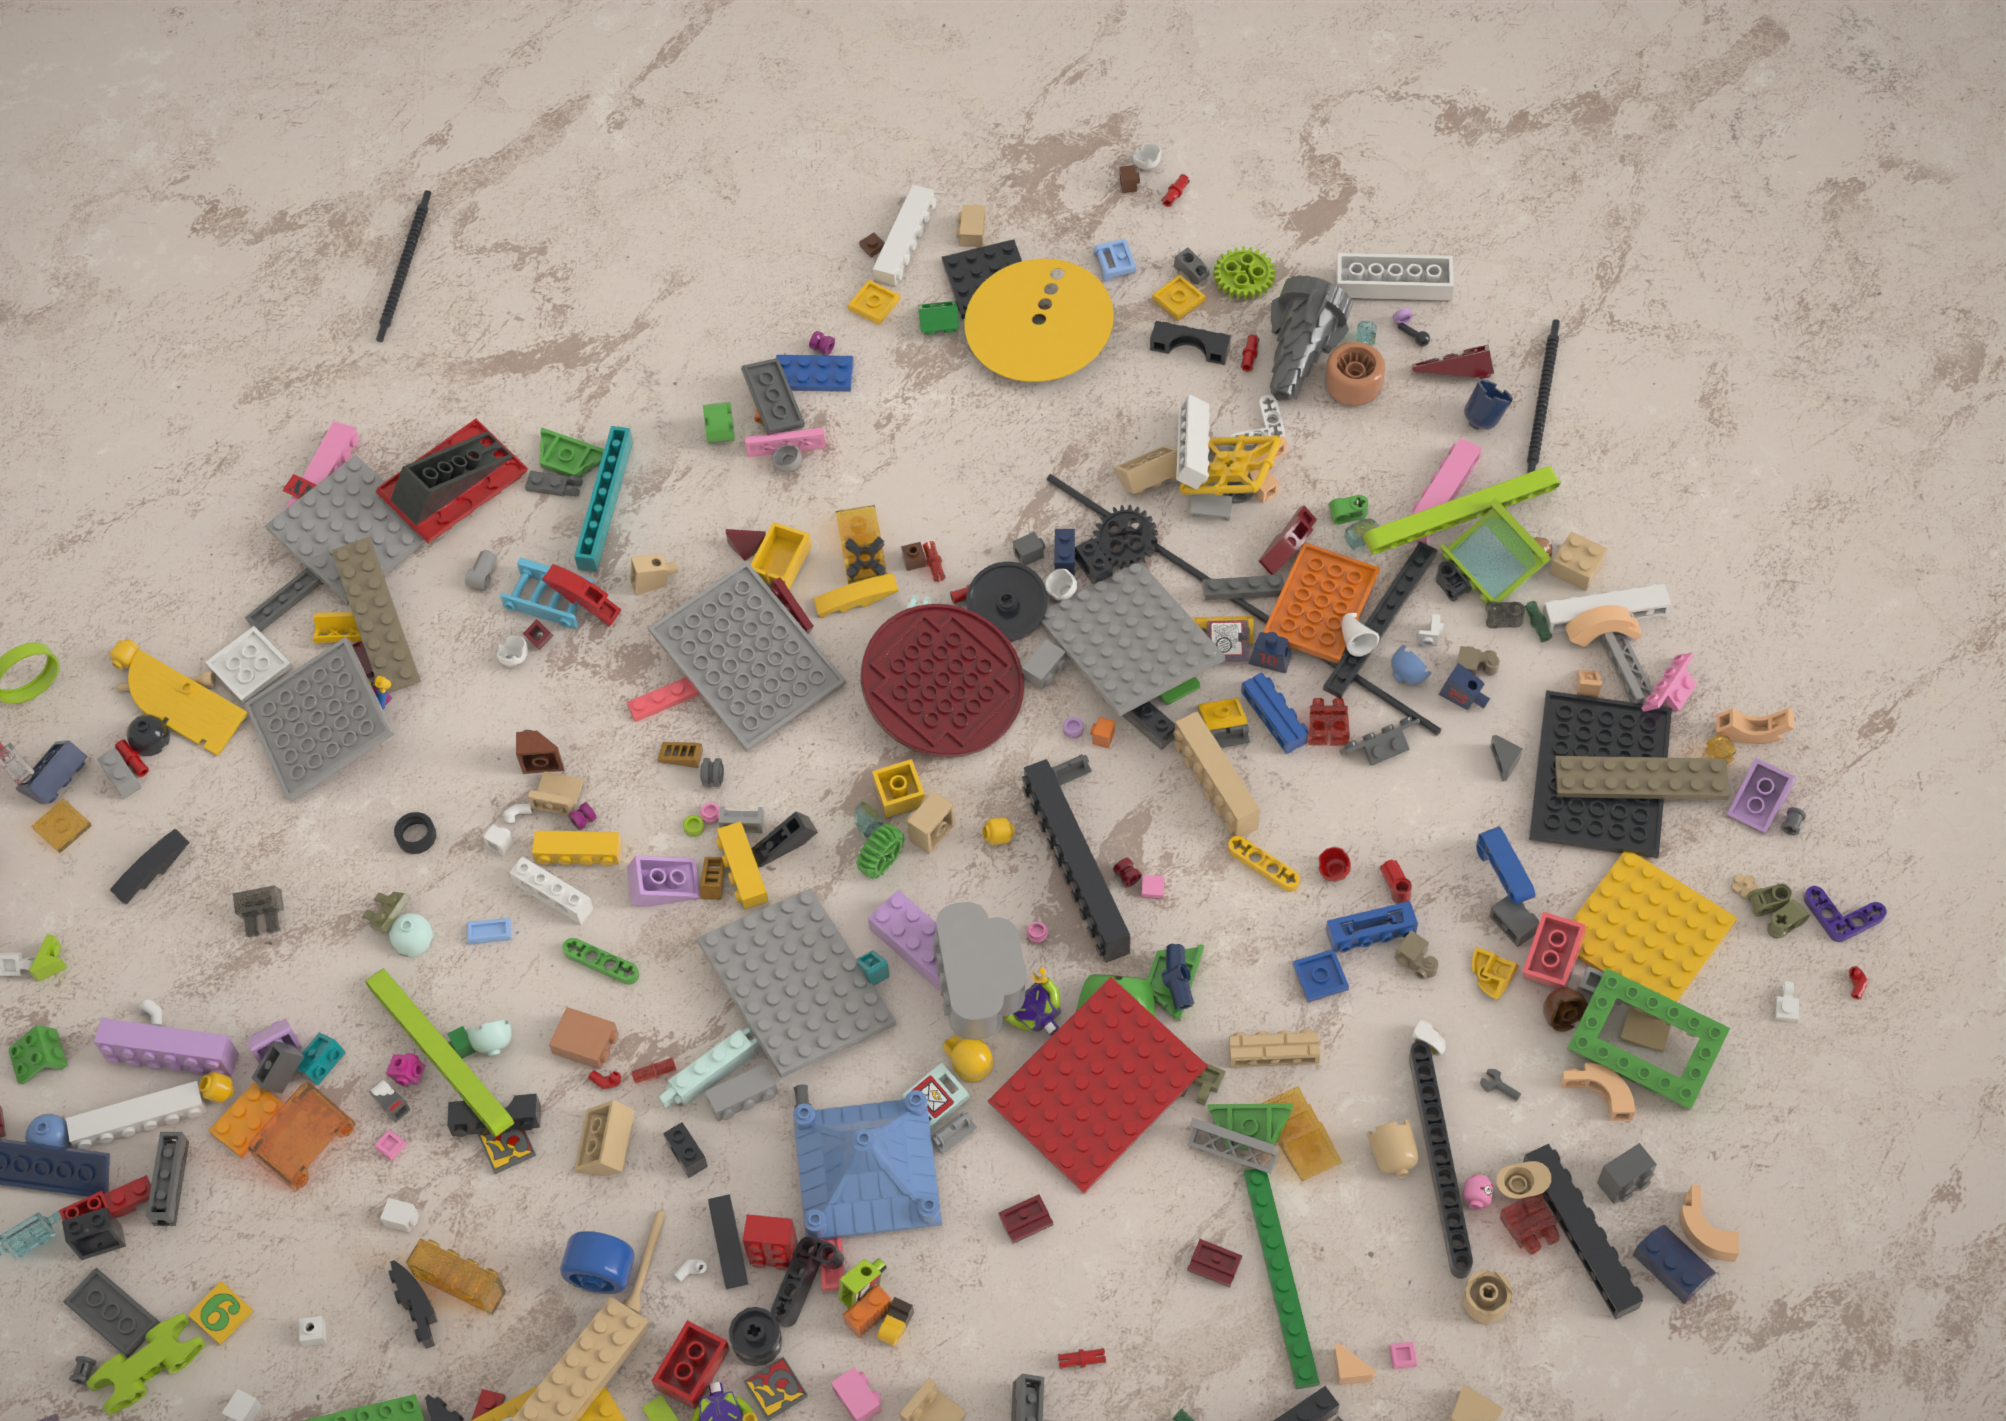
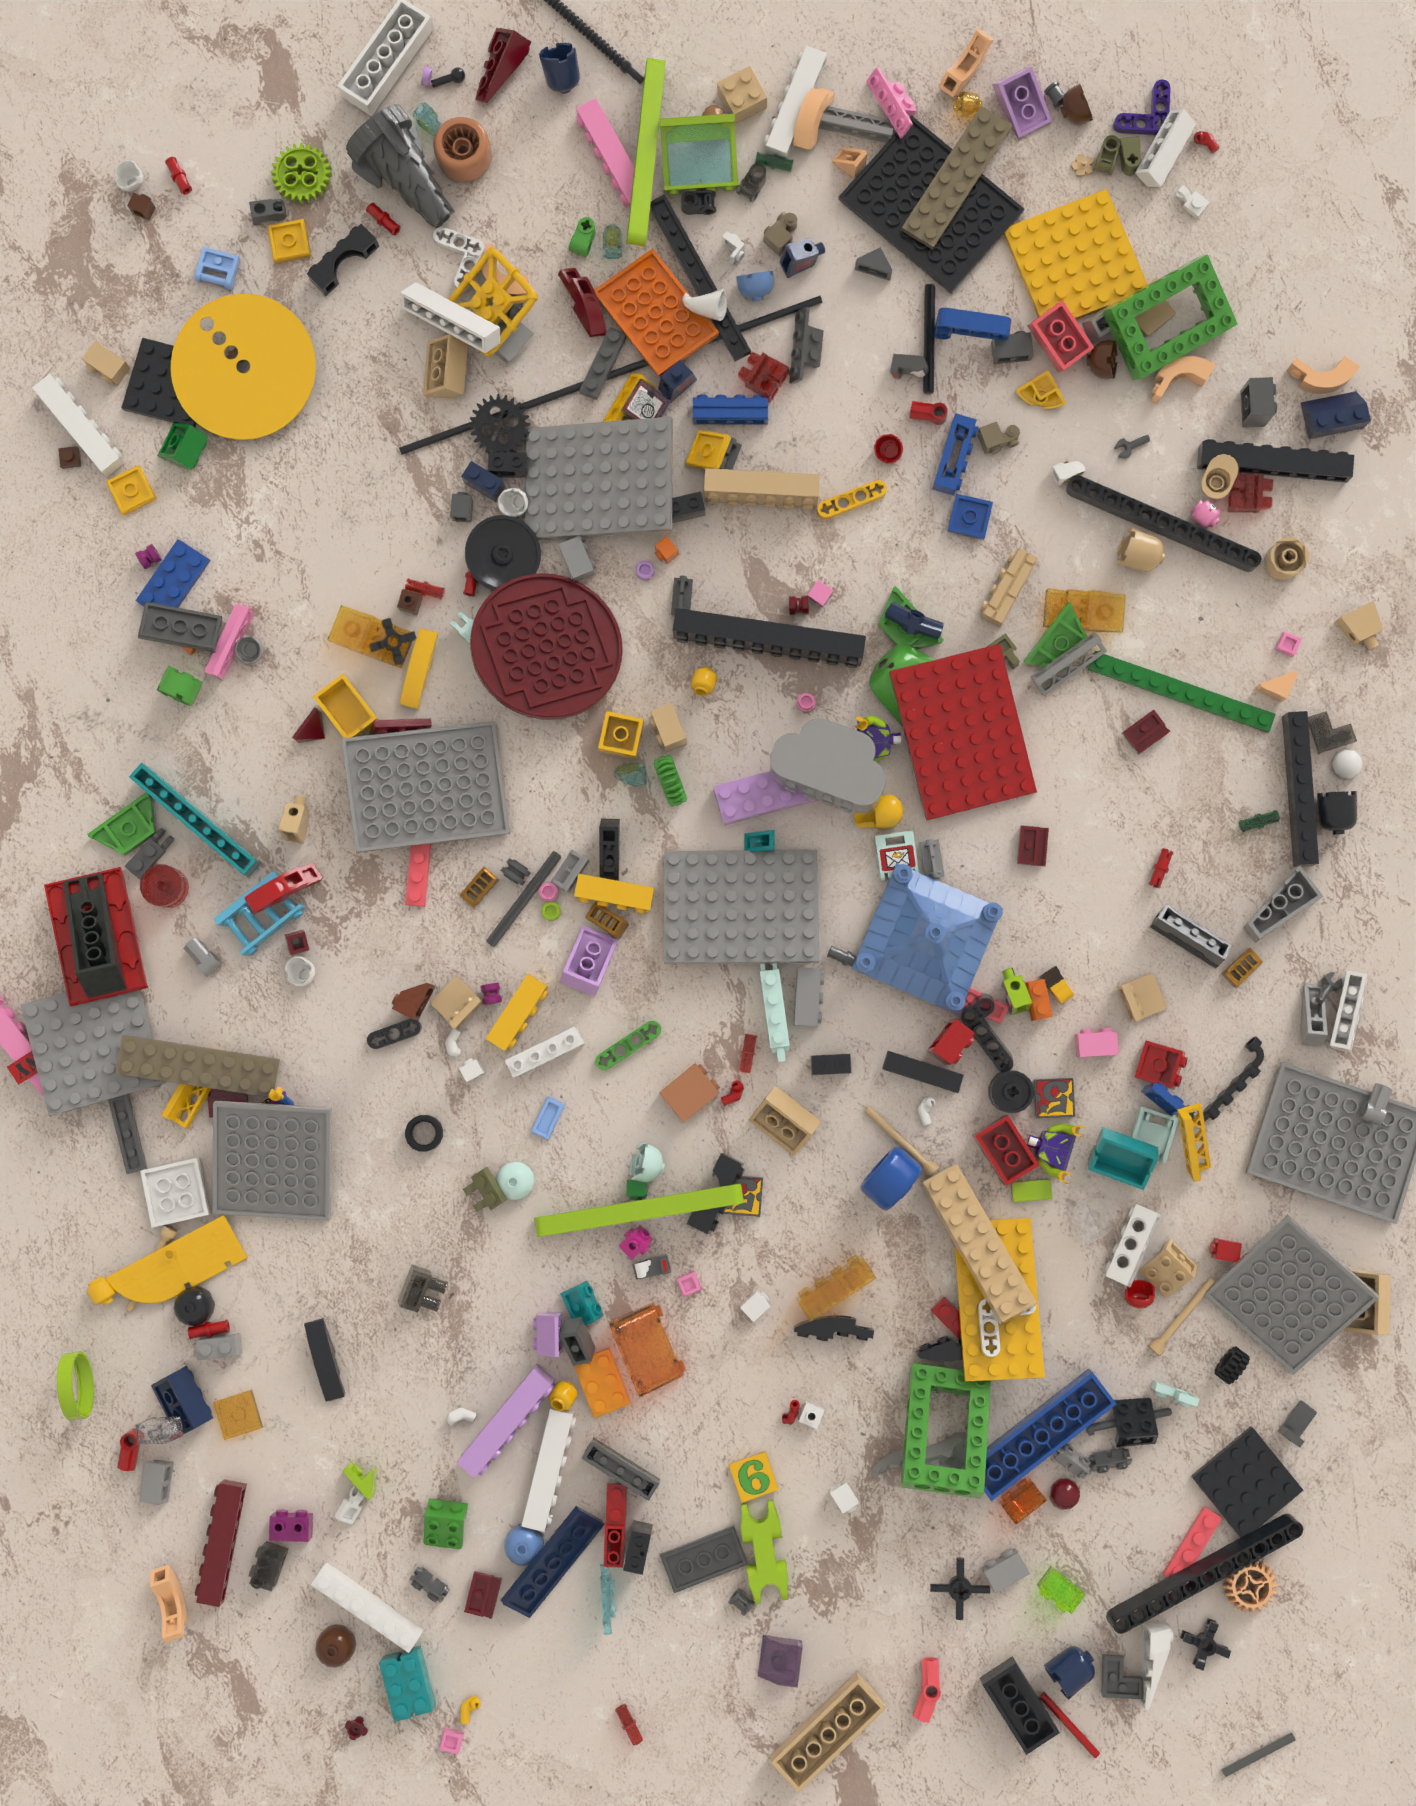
camera: 55 degrees left, 25 degrees up
(300, 1313) = (793, 1412): none -> red arm
(496, 751) = (382, 1043): none -> black beam
(528, 506) = (152, 886): none -> clear red wheel
(692, 796) = (523, 899): none -> dark grey axle
(1428, 835) = (908, 364): none -> dark grey leg
(1465, 846) = (929, 338): none -> black axle
(1794, 843) = (1076, 106): none -> reddish brown cylinder
(1817, 946) = (1165, 148): none -> white brick

